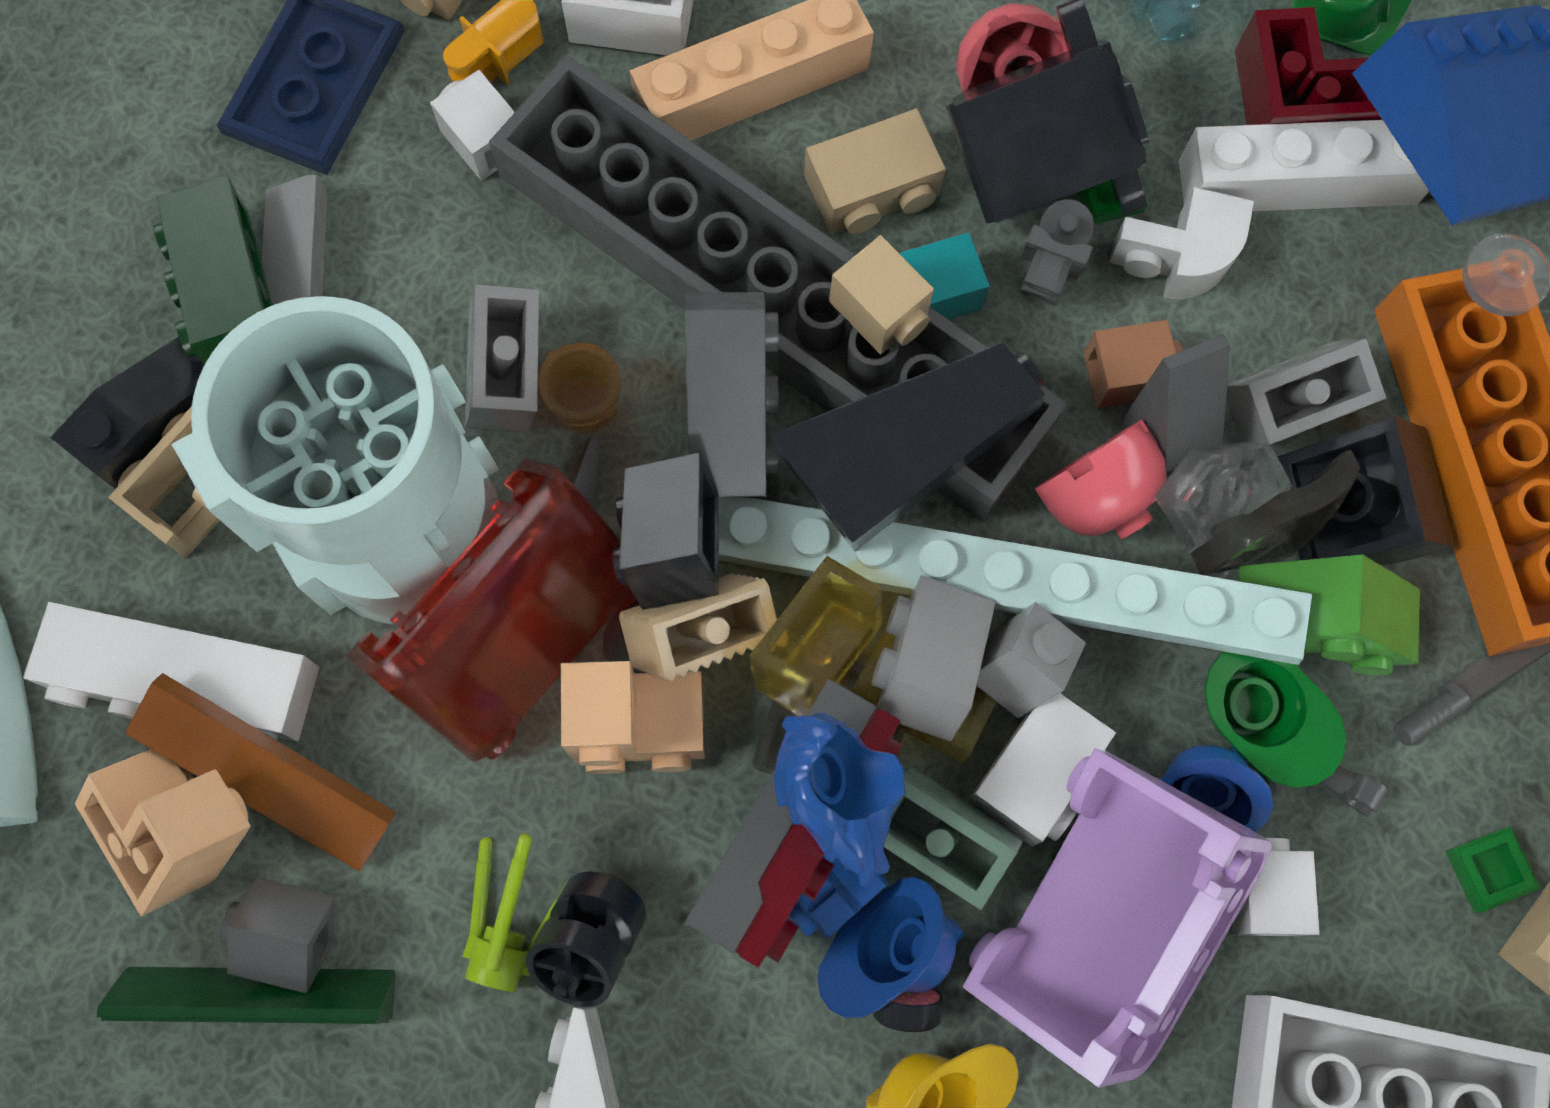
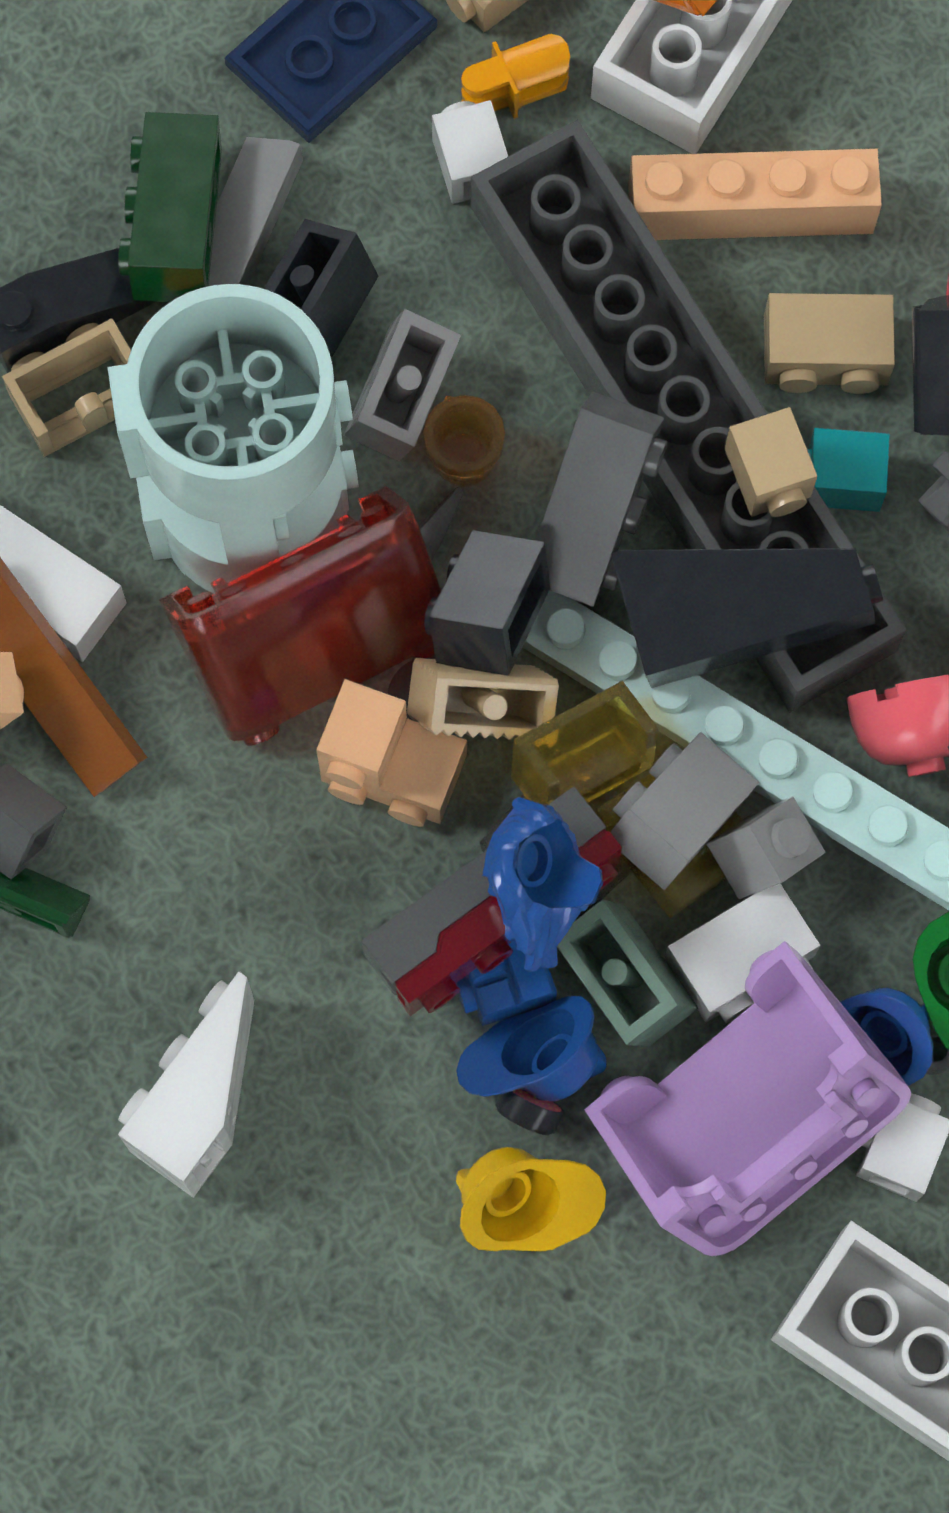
camera: 25 degrees right, 0 degrees up
(392, 278) = (325, 277): none -> black brick
(497, 952) = (185, 913): lime plant -> none
(586, 939) = (271, 929): black wheel -> none

